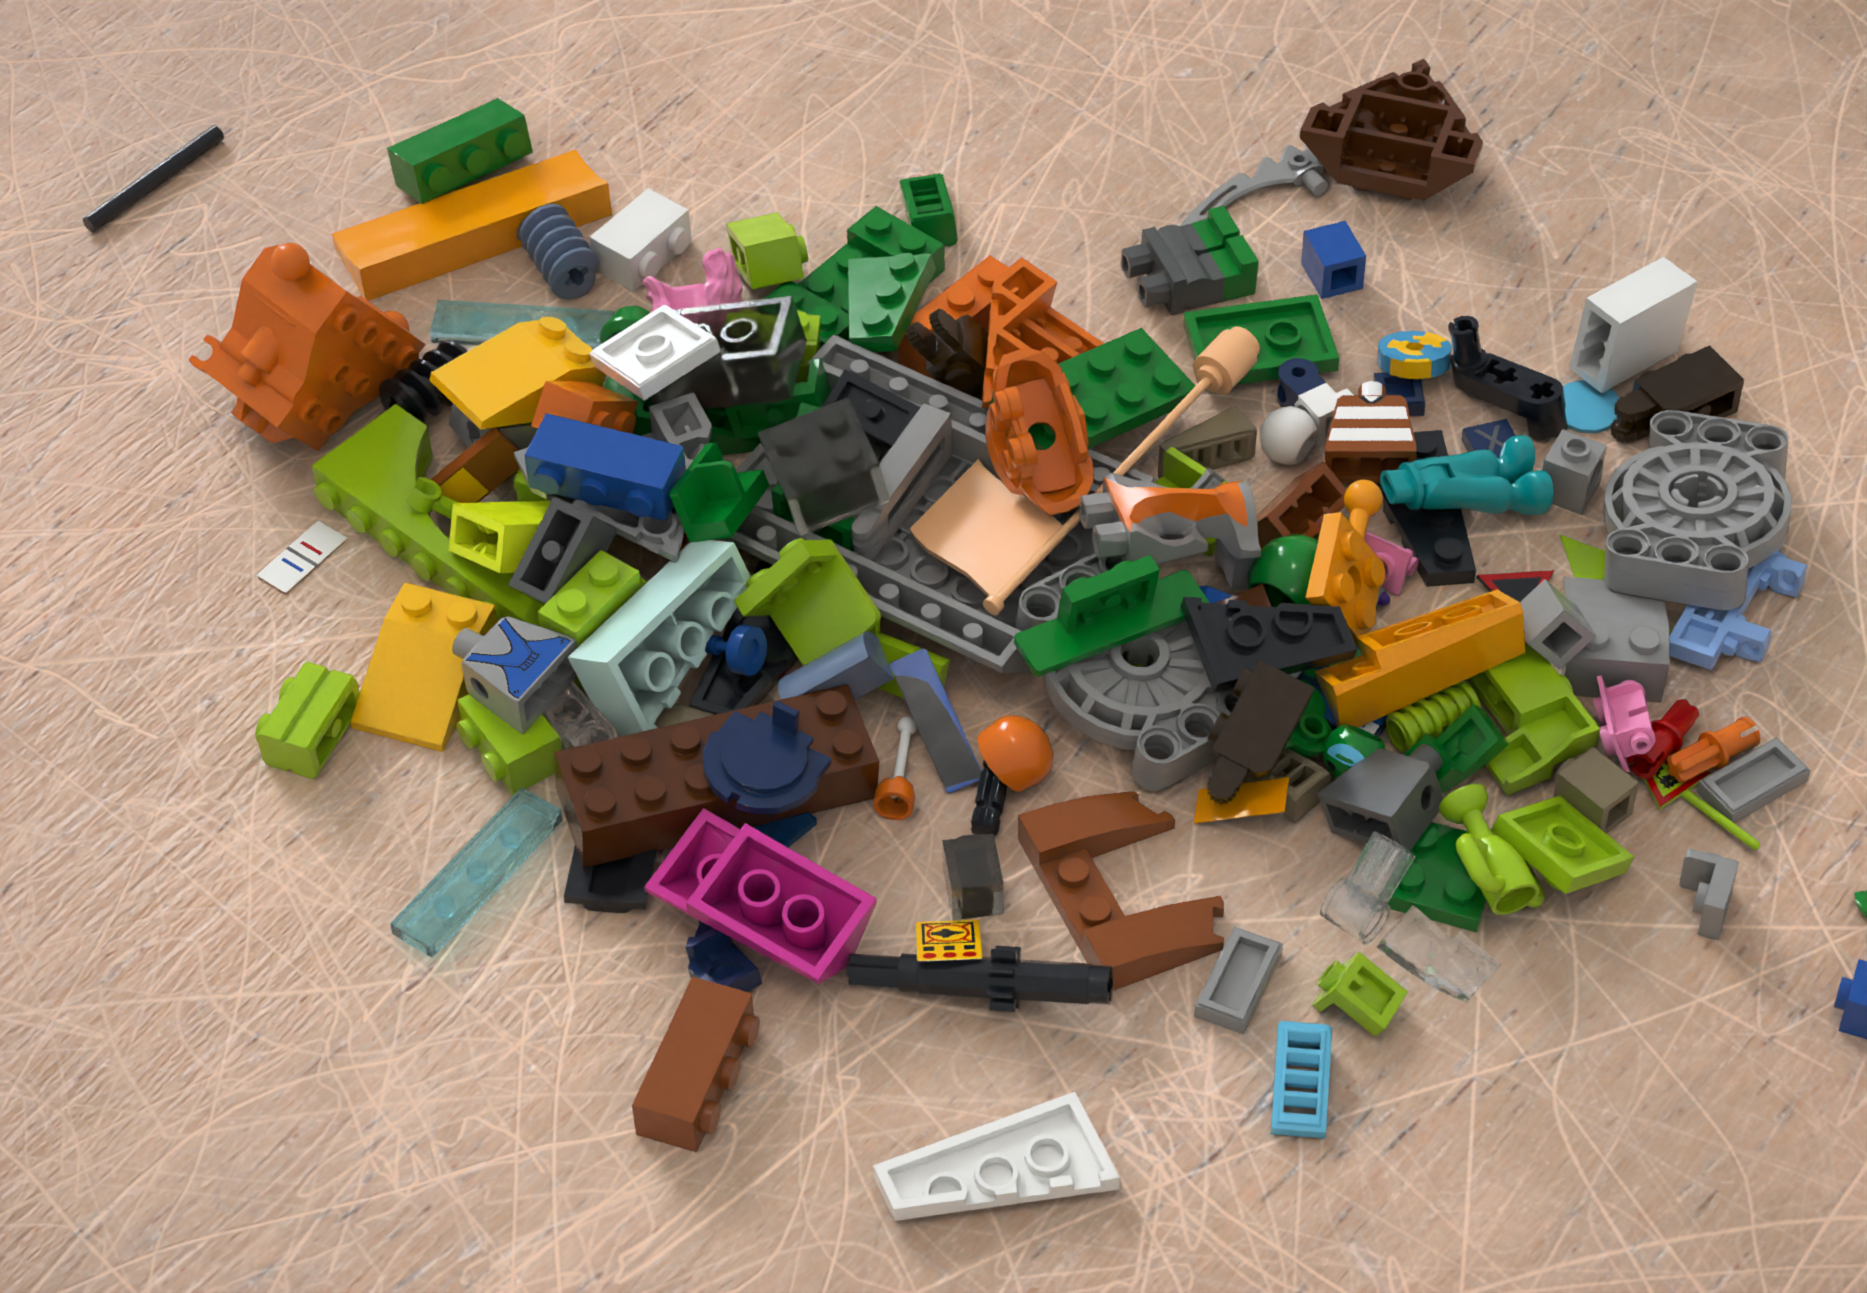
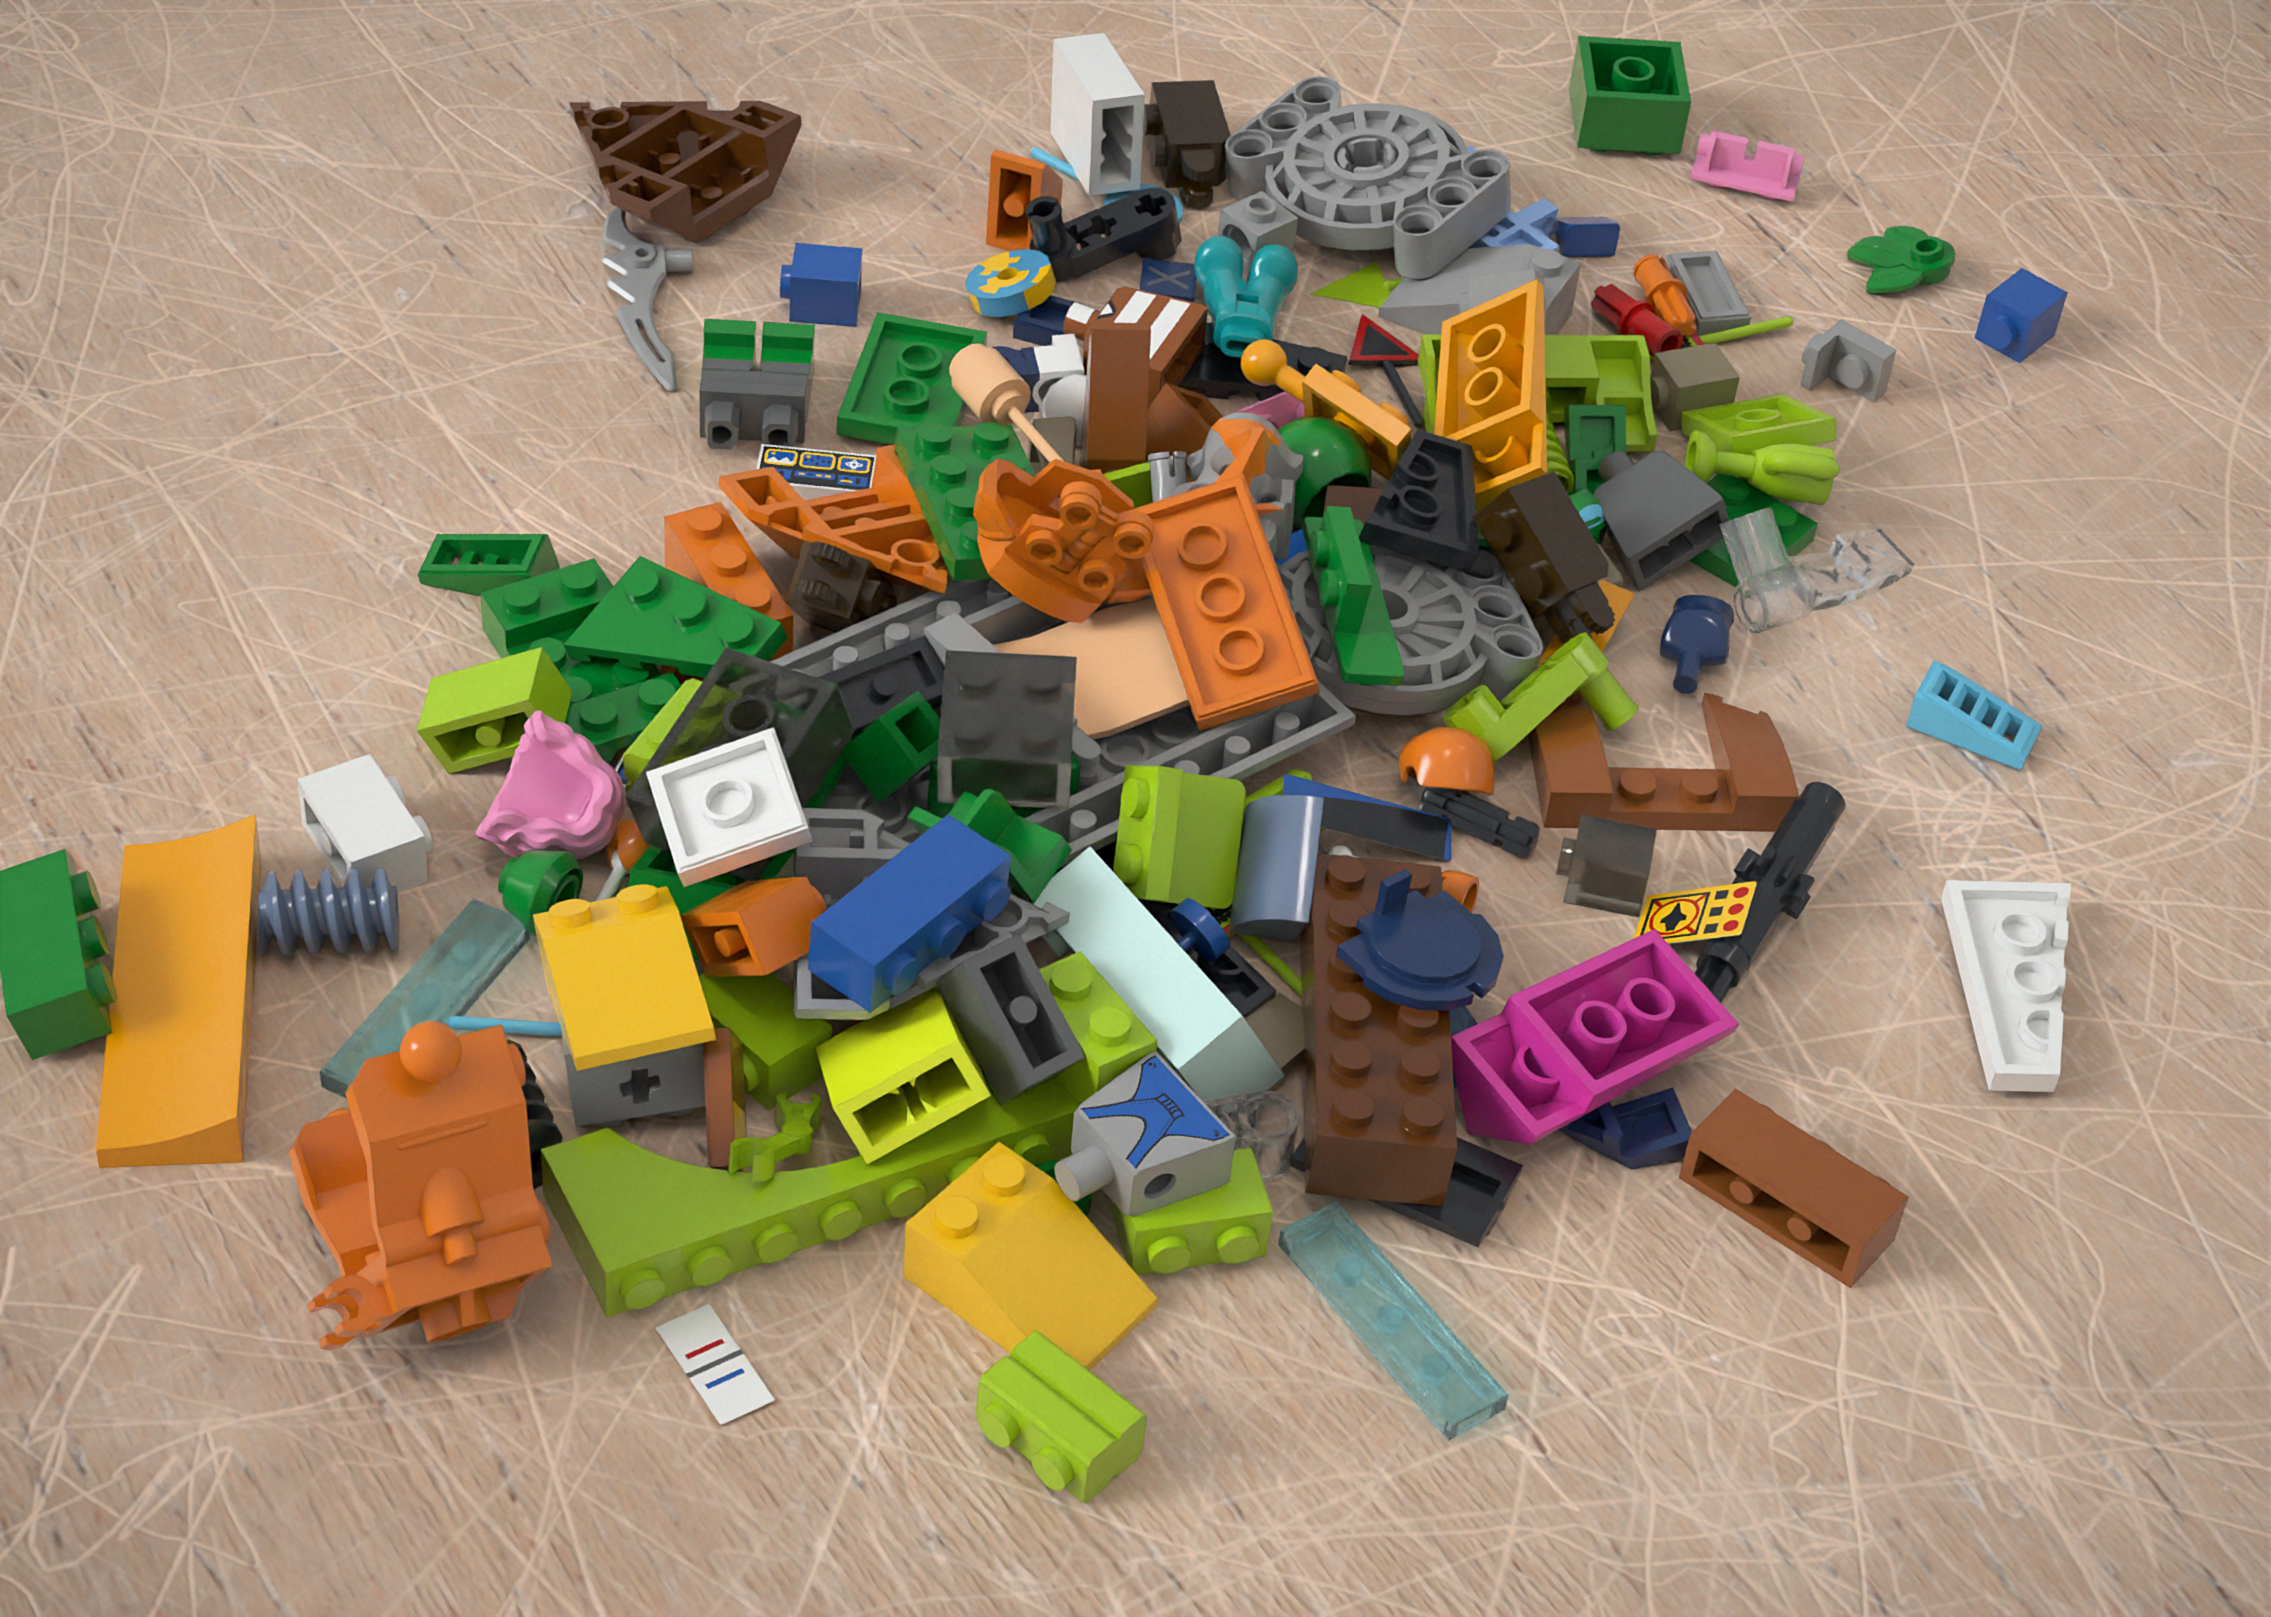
camera: 75 degrees left, 5 degrees down
(1033, 539) = (1224, 605): none -> orange tile
(1076, 764) = (1573, 667): none -> lime beam
(1124, 313) = (819, 472): none -> tile
(1238, 980) = (1819, 721): light grey tile -> none
(1254, 437) = (1116, 396): none -> dark orange slope
(1275, 873) = (1696, 638): none -> dark blue piece
(1360, 992) = (1875, 634): lime bracket -> none
(1508, 321) = (1012, 186): none -> orange slope
(1624, 720) = (1604, 317): bright pink hinge -> none
(1768, 678) = (1587, 236): none -> blue slope

